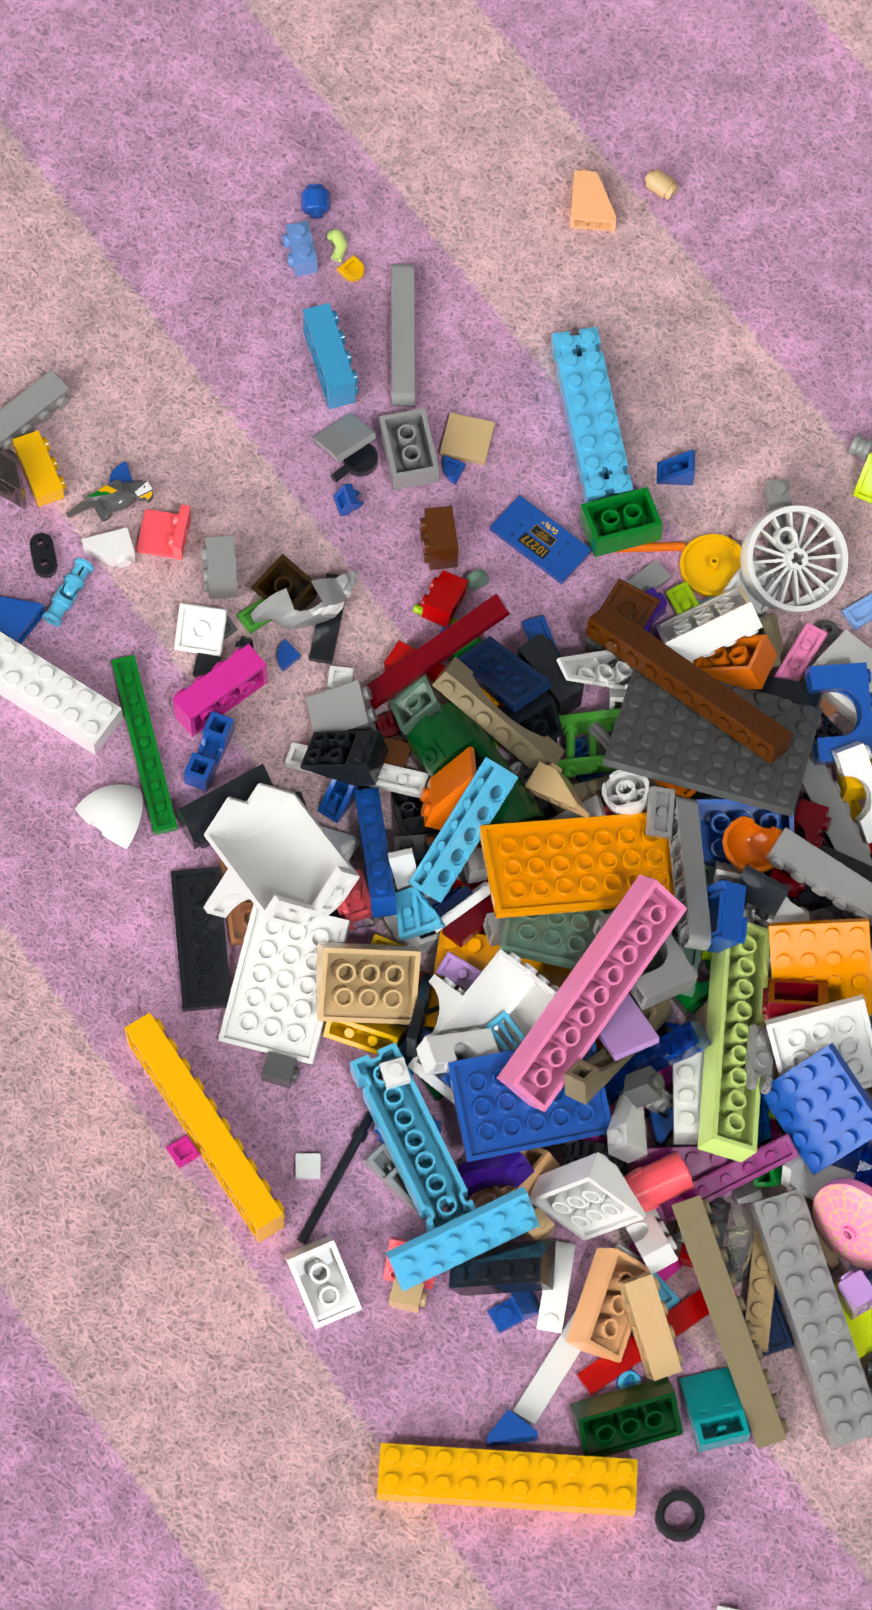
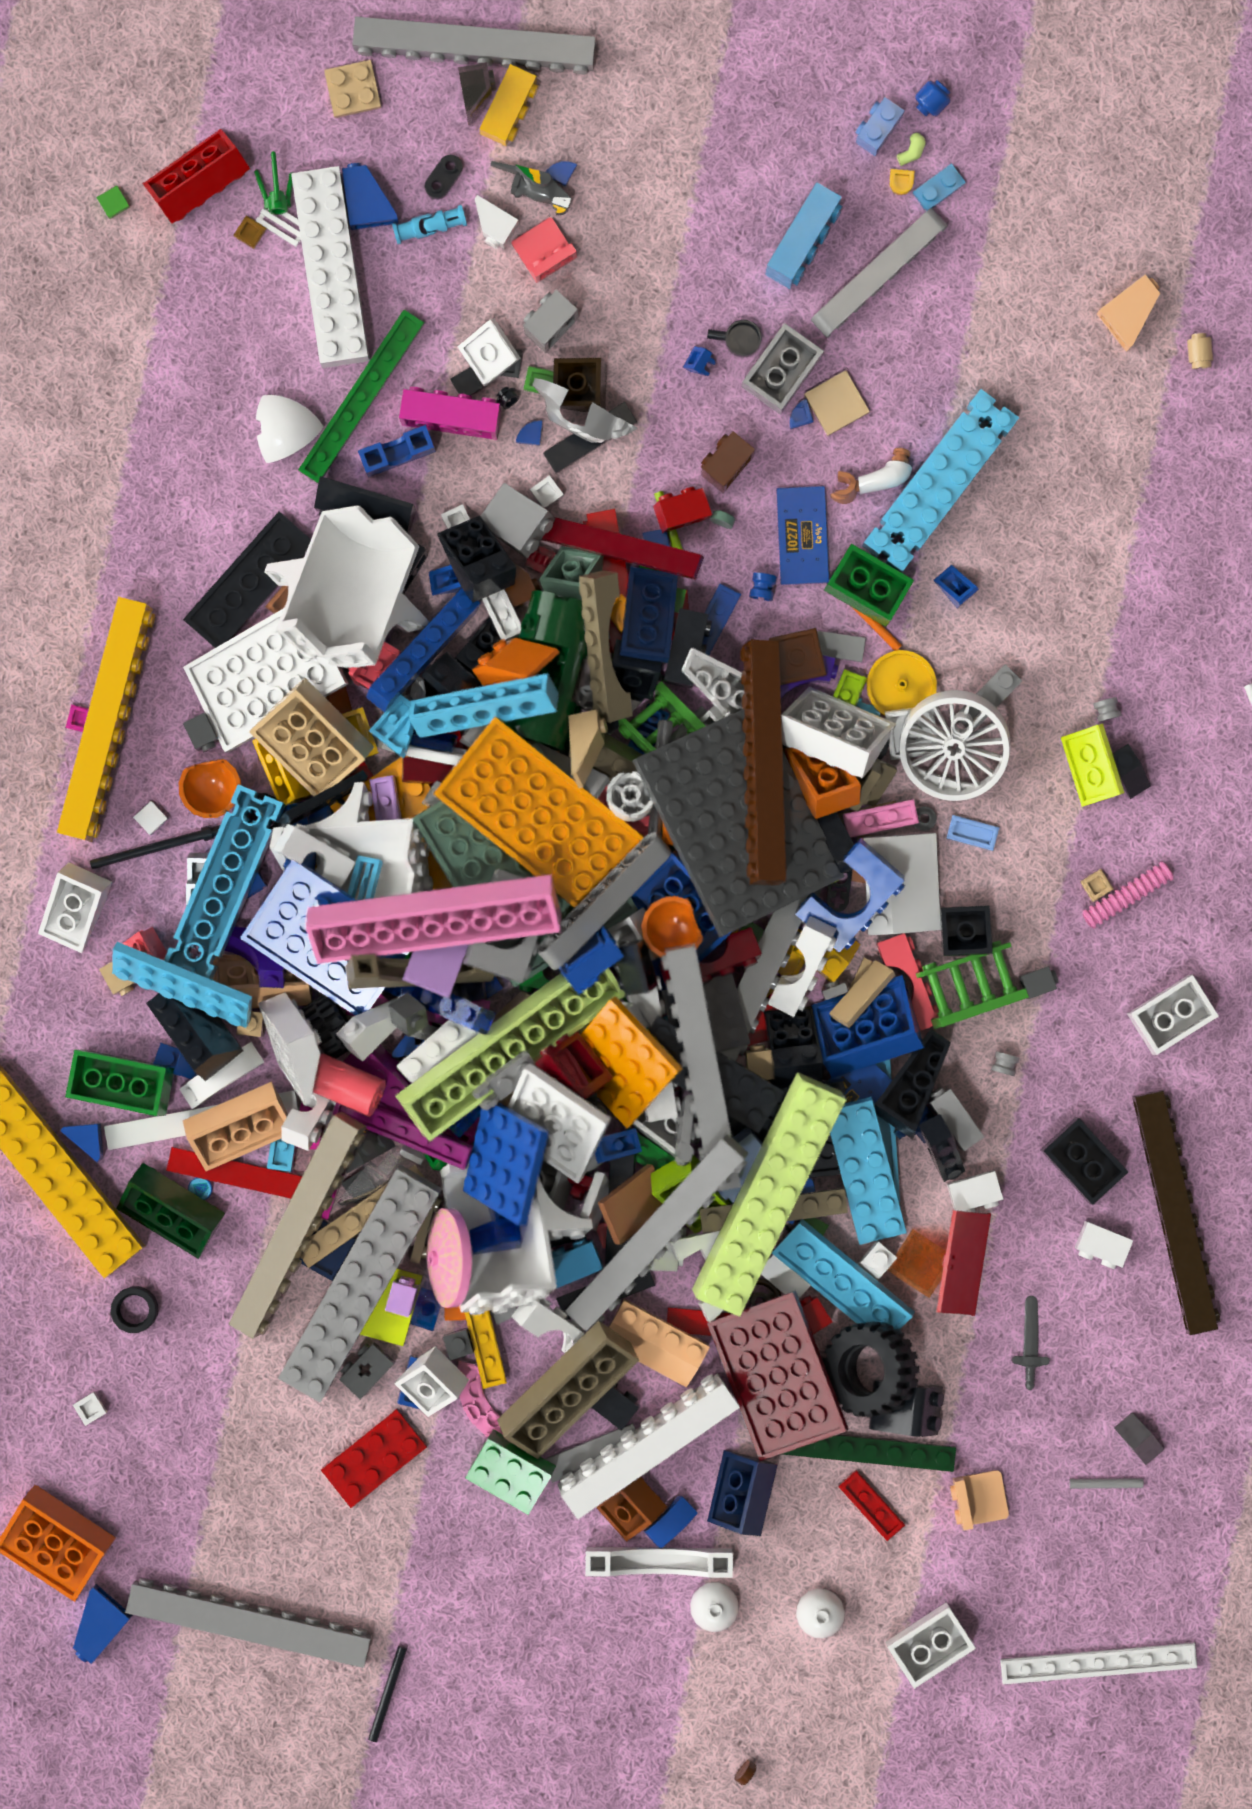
camera: 55 degrees right, 20 degrees up
(329, 1096) = (208, 788): none -> orange cylinder
(344, 437) = (748, 310): light grey tile -> none
(381, 250) = (939, 187): none -> dark azure plate
(395, 1073) = (257, 825): white plate -> none
(403, 867) = (421, 684): white tile -> none
(492, 1362) = (120, 1082): none -> green brick
(551, 593) = (763, 586): none -> blue wheel
(555, 443) = (890, 476): none -> piece
(650, 1326) = (246, 1171): tan brick -> none
(660, 812) = (633, 837): light grey plate -> none
(714, 1409) = (230, 1266): teal slope -> none

